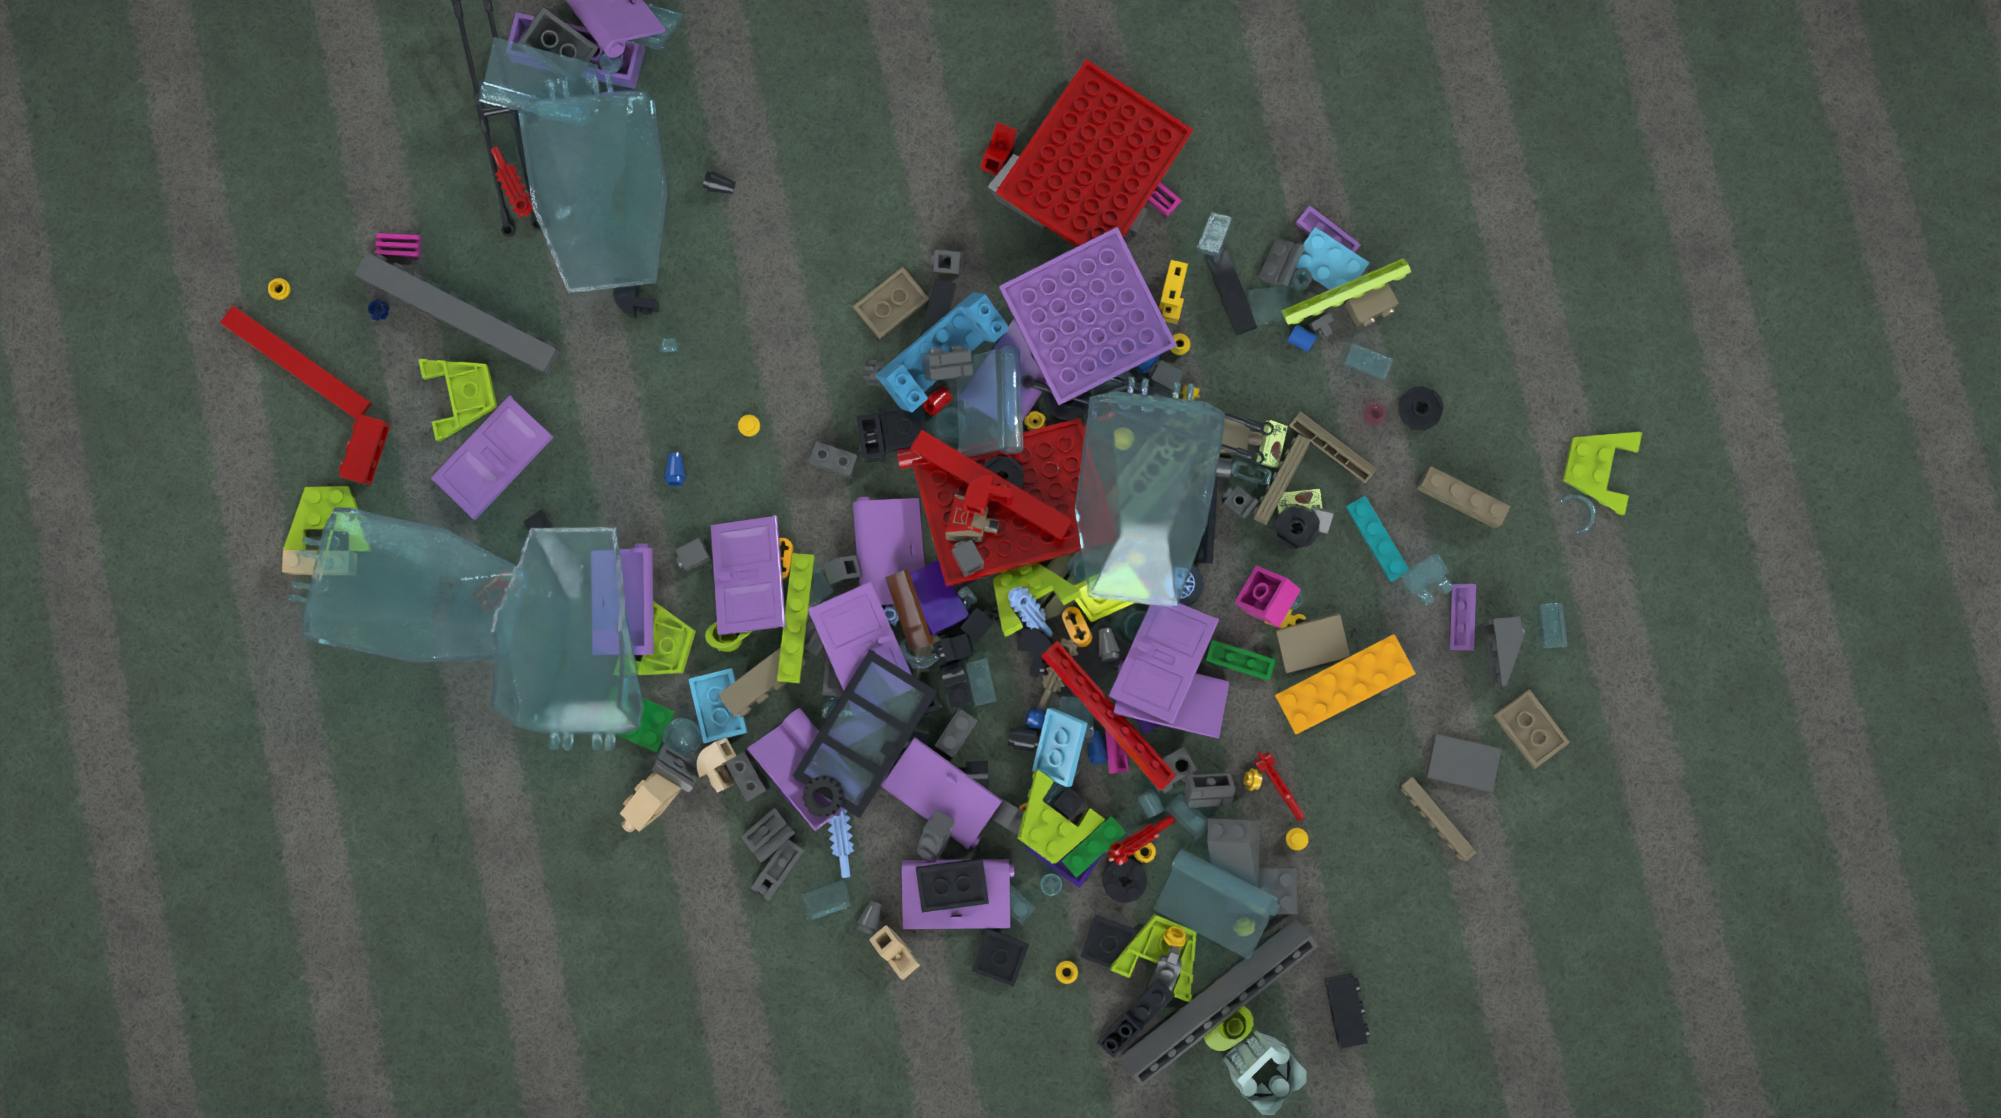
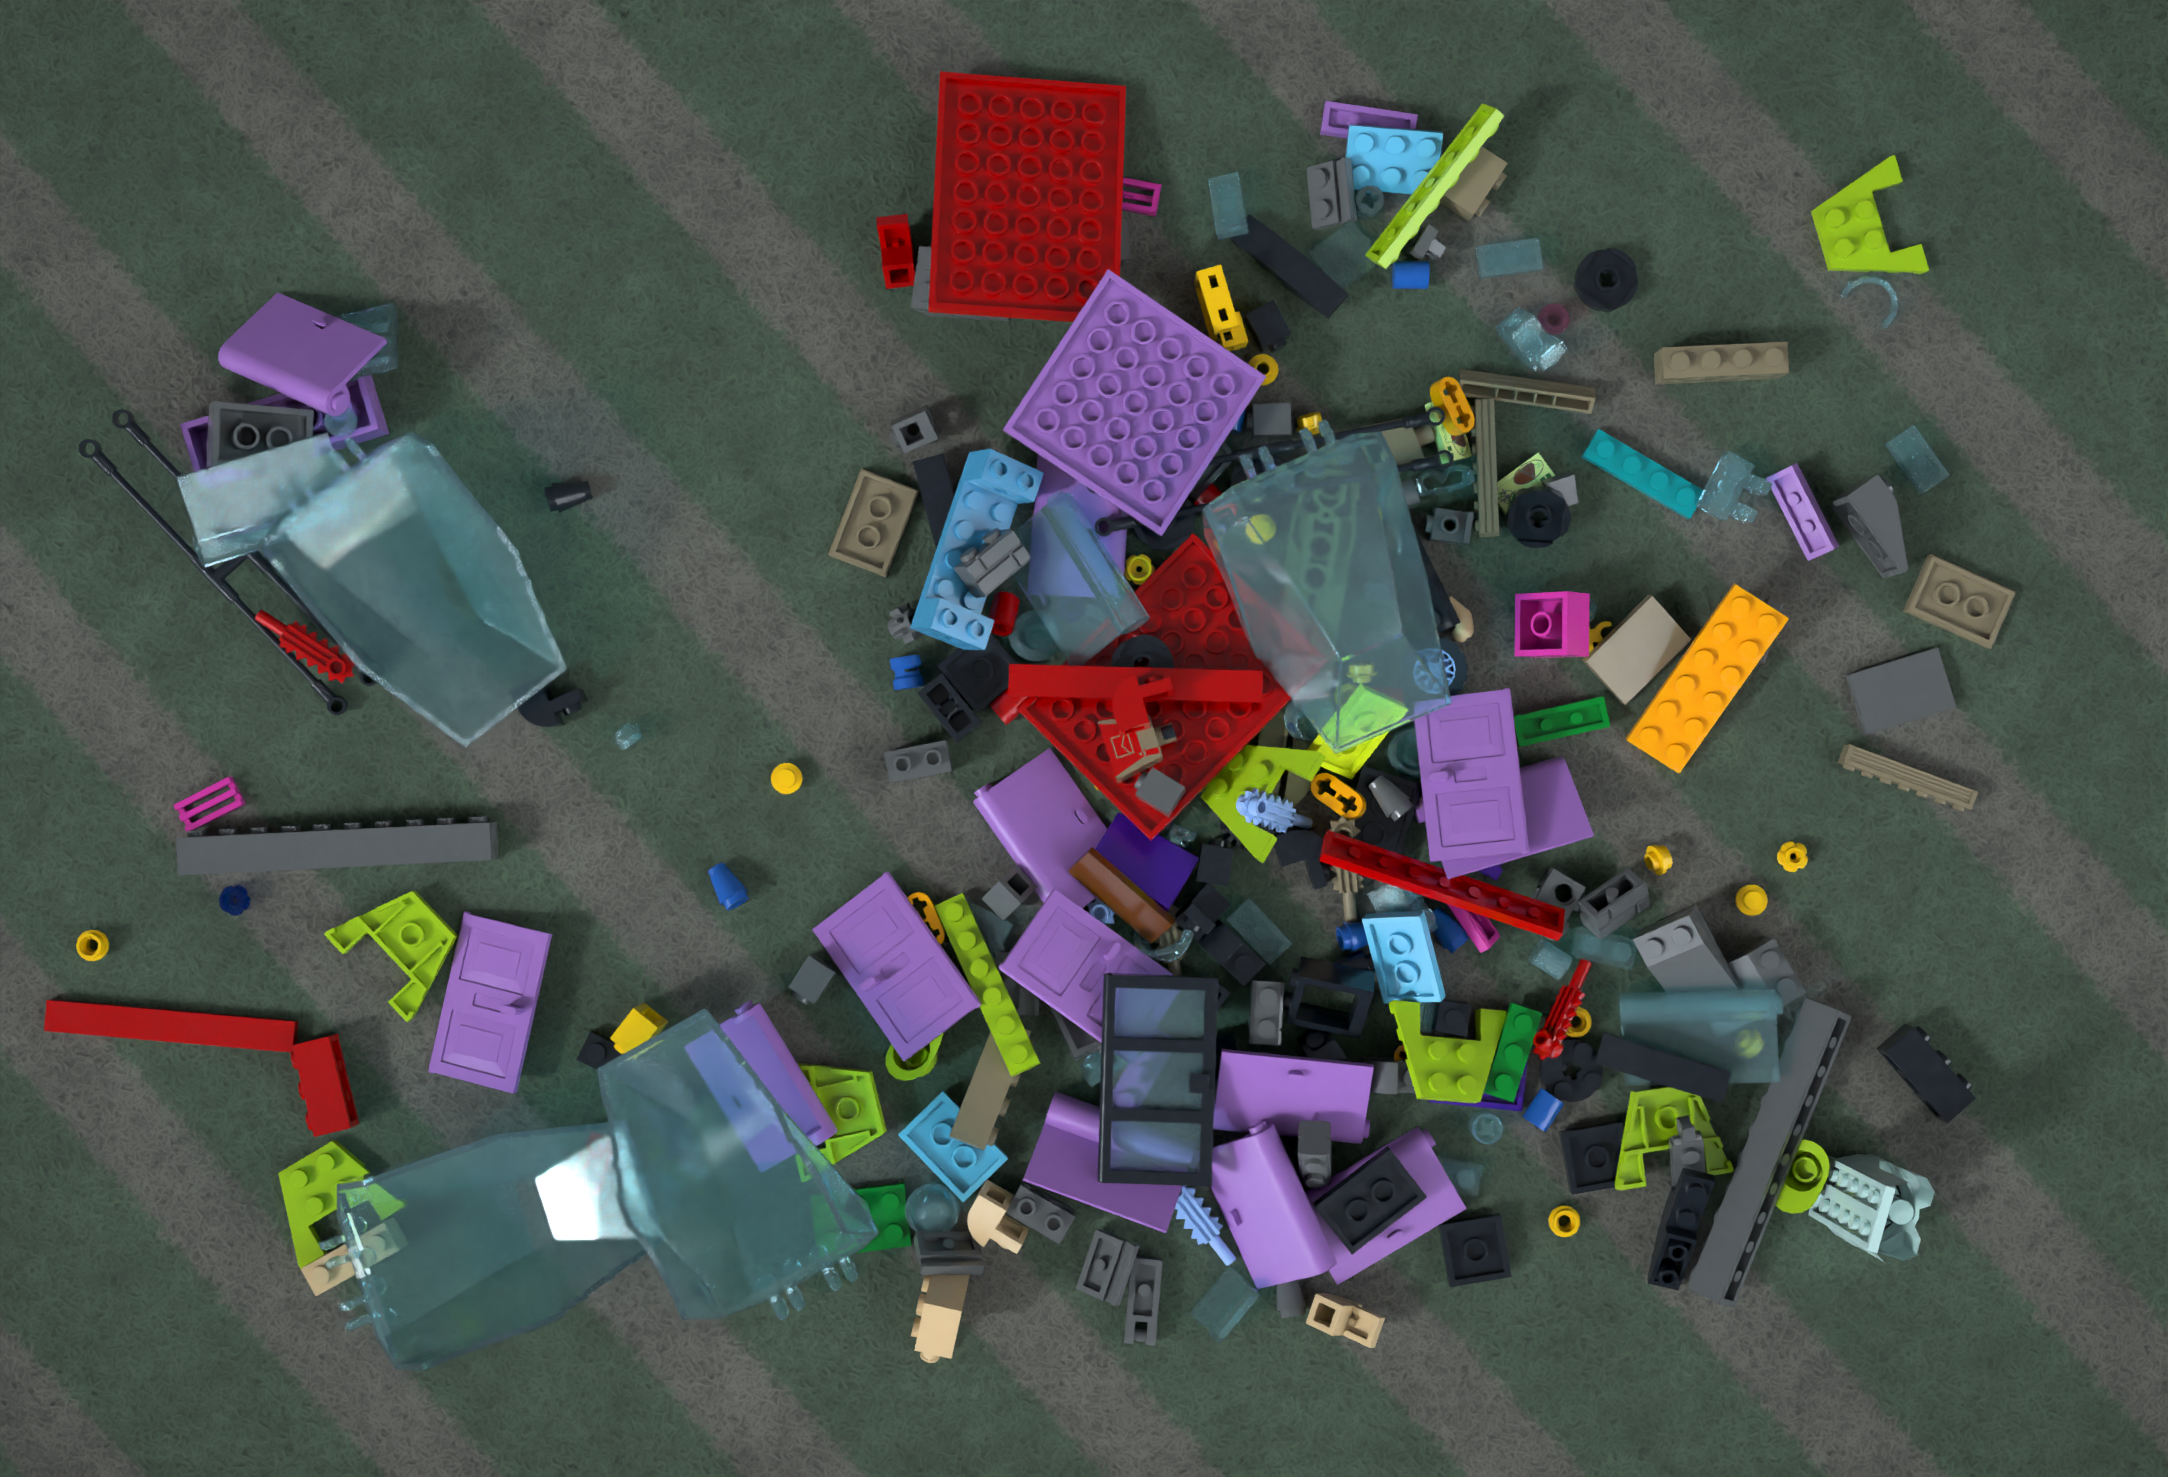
camera: 35 degrees left, 5 degrees up
(569, 518) = (637, 1028): none -> yellow brick
(809, 796) = (1152, 1205): black tyre -> none
(858, 402) = (910, 679): none -> blue wheel
(887, 854) = (1268, 1209): none -> medium lavender door
(1008, 733) = (1333, 977): none -> black window
(1092, 894) = (1543, 1110): none -> blue piece
(1175, 937) = (1674, 1106): yellow plate -> none
(1182, 909) = (1664, 1067): none -> black slope
(1197, 320) = (1268, 327): none -> black brick
(1214, 569) = (1465, 628): none -> tan arm
(1266, 763) = (1663, 831): red piece -> none
(1282, 430) = (1453, 405): none -> light orange beam
(1342, 831) = (1786, 850): none -> yellow plate
(1352, 417) = (1529, 340): none -> clear light blue brick

